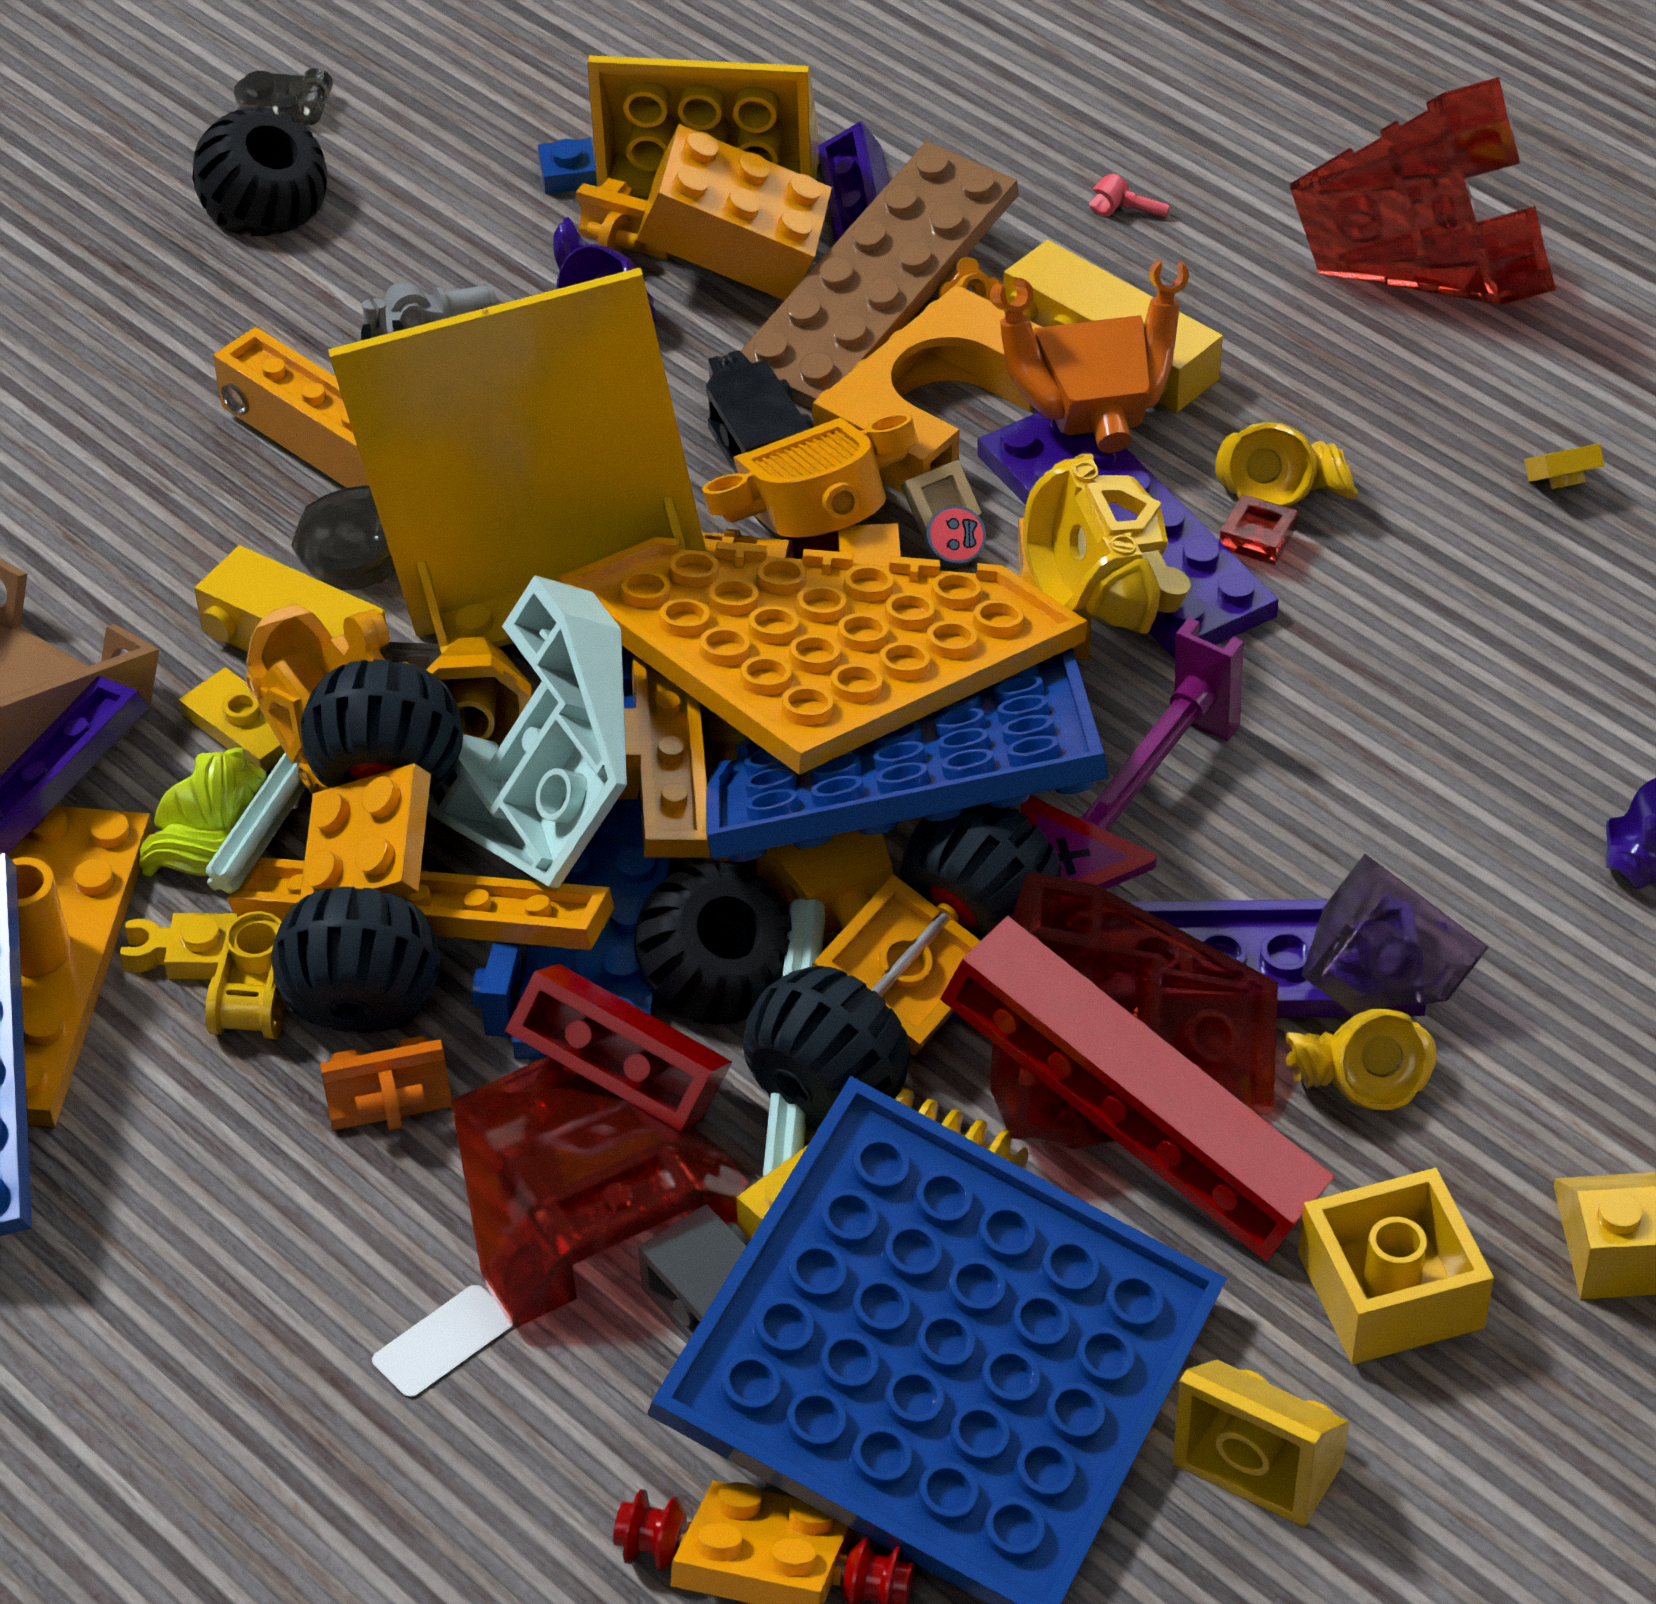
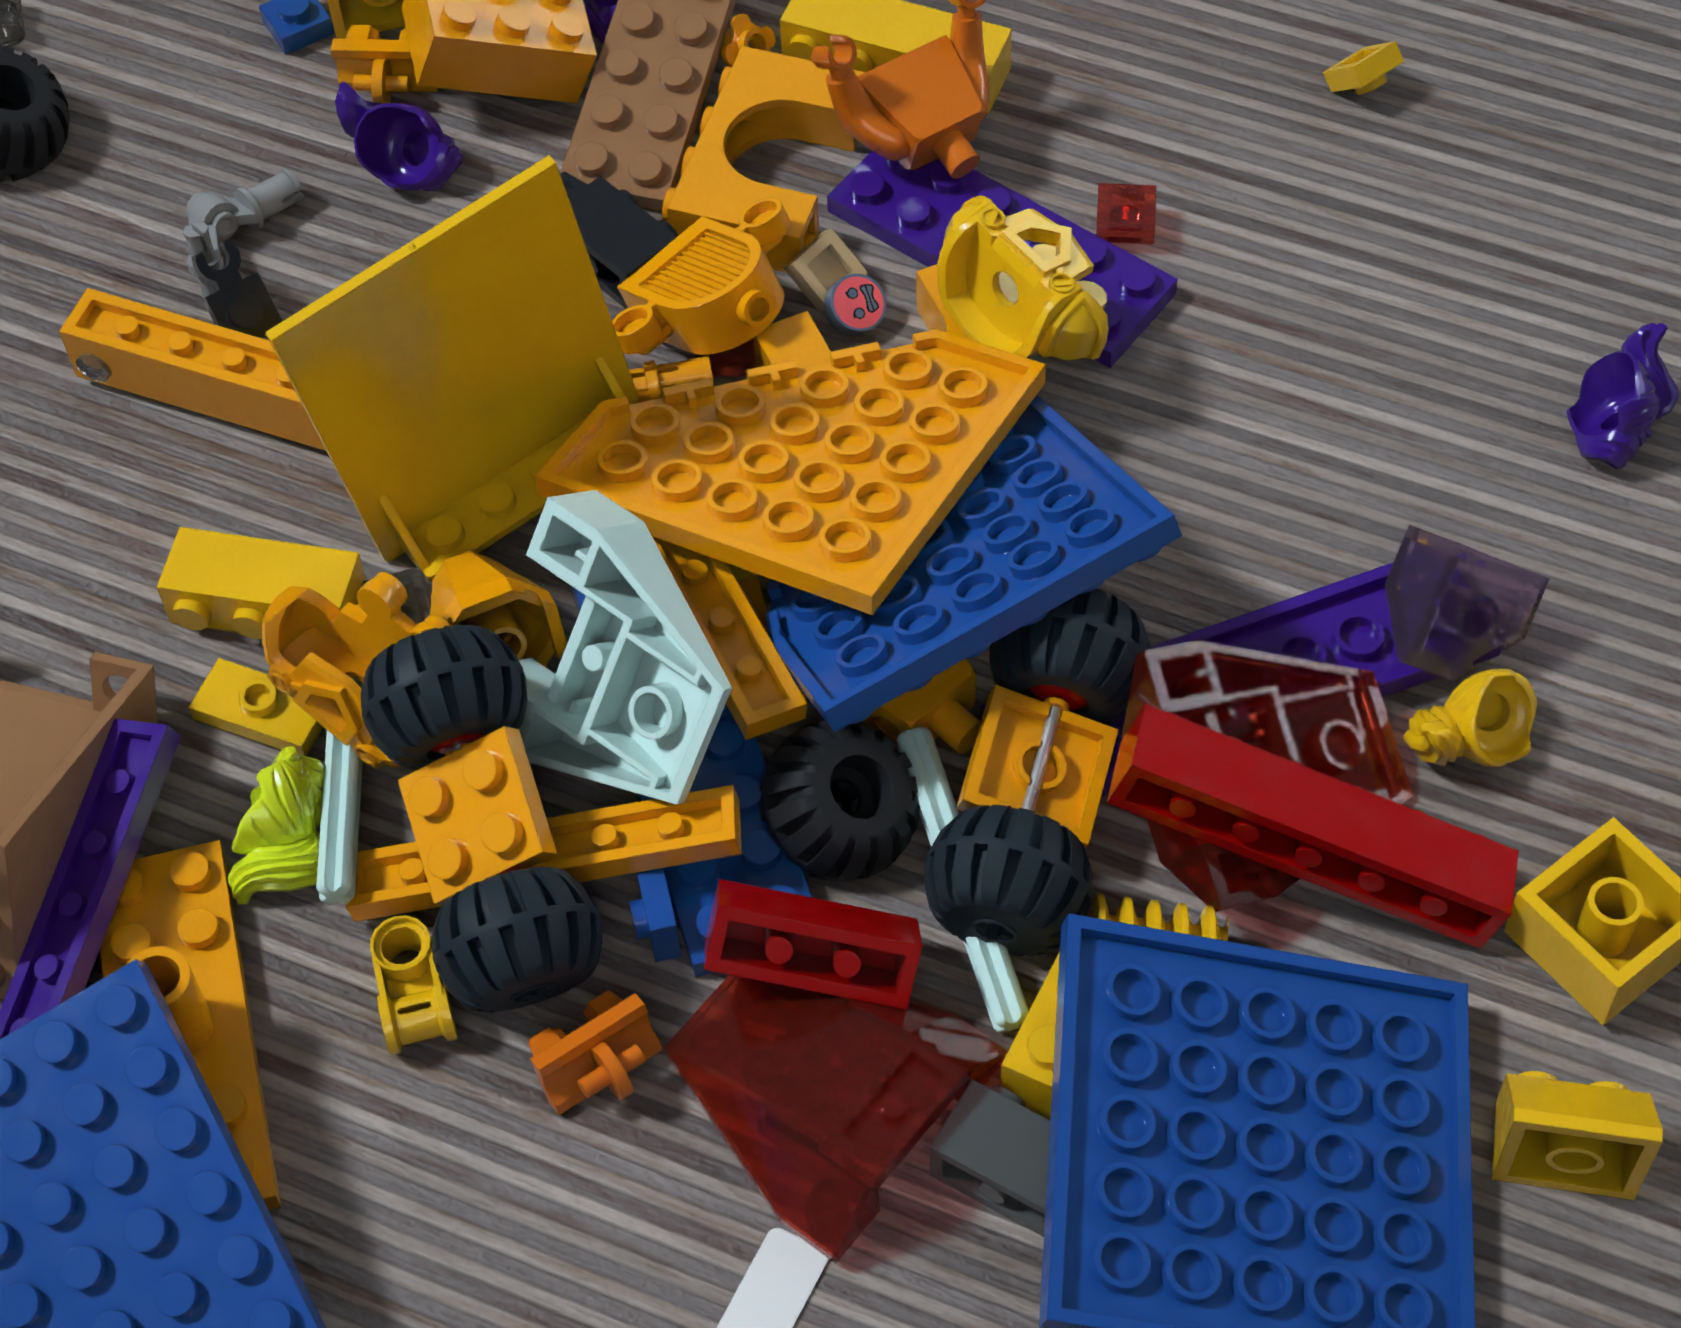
camera: 20 degrees left, 10 degrees up
(185, 948) = (330, 966): yellow plate -> none
(344, 540) = (279, 480): clear smoke hat -> none
(1203, 696) = (1163, 403): magenta piece -> none
(1281, 465) = (1122, 145): yellow hair -> none

